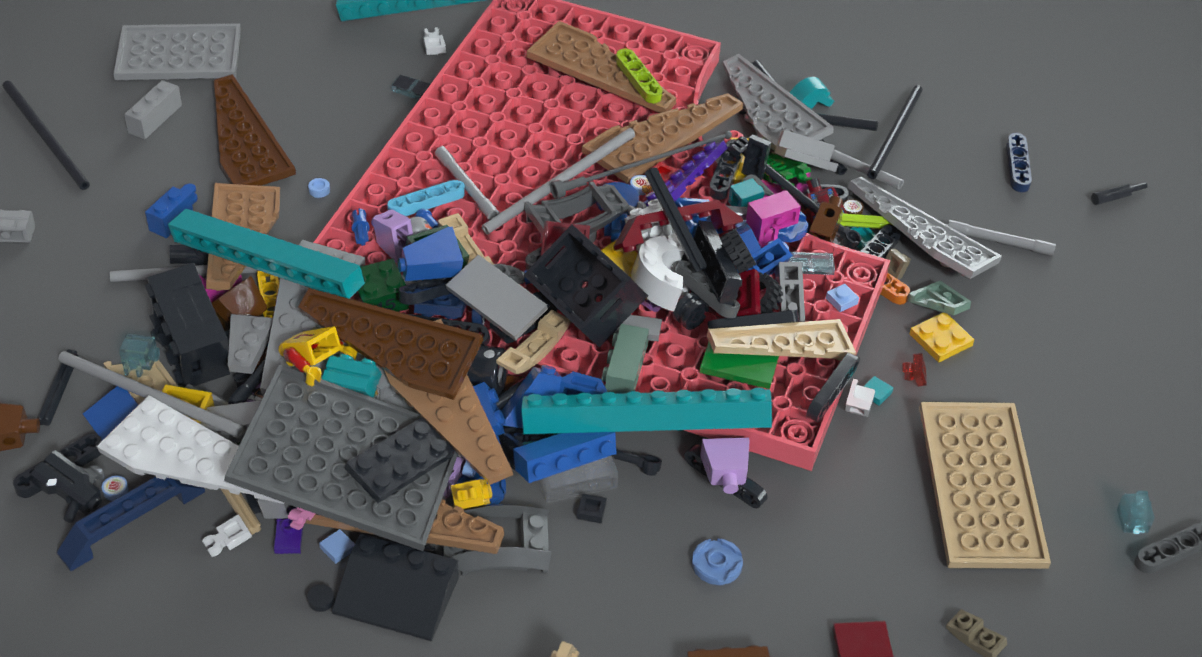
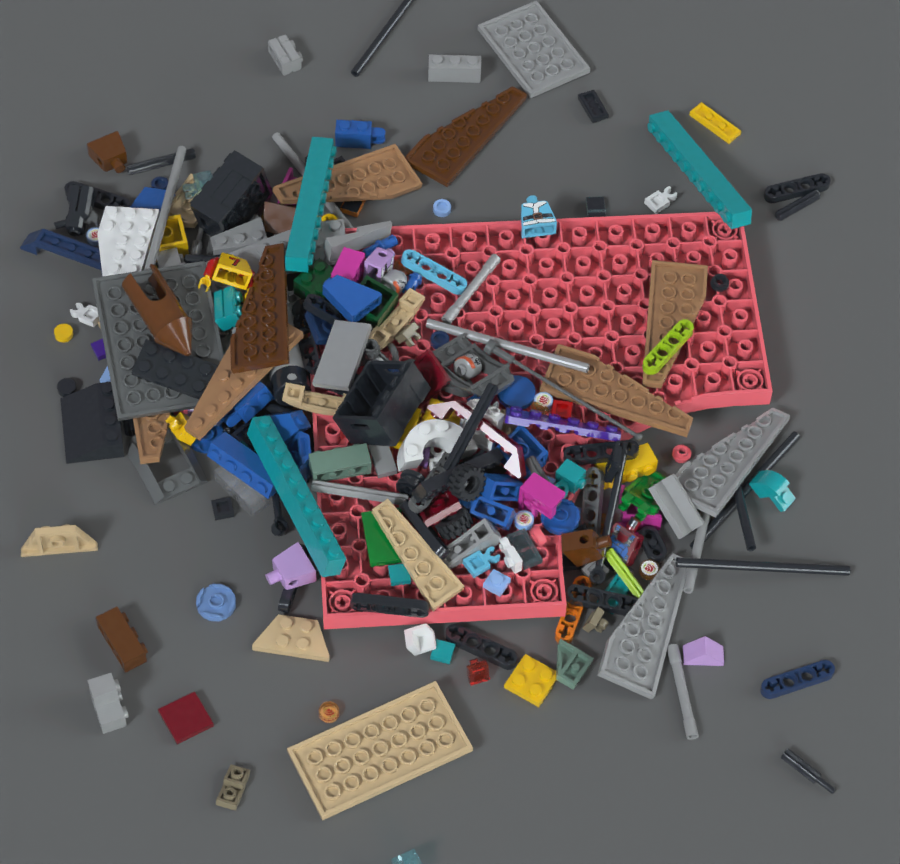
camera: 65 degrees right, 10 degrees up
(88, 399) = (159, 183): none -> dark blue tile
(235, 572) = (63, 333): none -> yellow tile
(285, 41) = (593, 106): none -> black plate
(328, 423) = (164, 317): none -> reddish brown piece
(345, 245) = (362, 238): none -> light grey slope
(381, 245) = (350, 265): none -> dark pink panel
(415, 104) = (537, 218): none -> medium azure torso
(492, 246) = (407, 333): none -> dark tan tile
(513, 229) = (438, 339): none -> dark blue tile
(569, 212) = (467, 366): none -> light grey head
(581, 22) = (722, 280): none -> black plate
(674, 357) = (357, 492): none -> light grey axle
(794, 368) = (398, 575): none -> teal tile
(801, 507) = (293, 638): none -> tan wing
(805, 244) = (537, 536): none -> coral tile
(814, 299) = (480, 563): none -> medium azure plate
(821, 272) = (511, 557): none -> white plate
(888, 362) = (479, 649): none -> black beam
(910, 512) = (329, 712): none -> clear orange tile
(964, 208) = (703, 652): none -> lavender slope

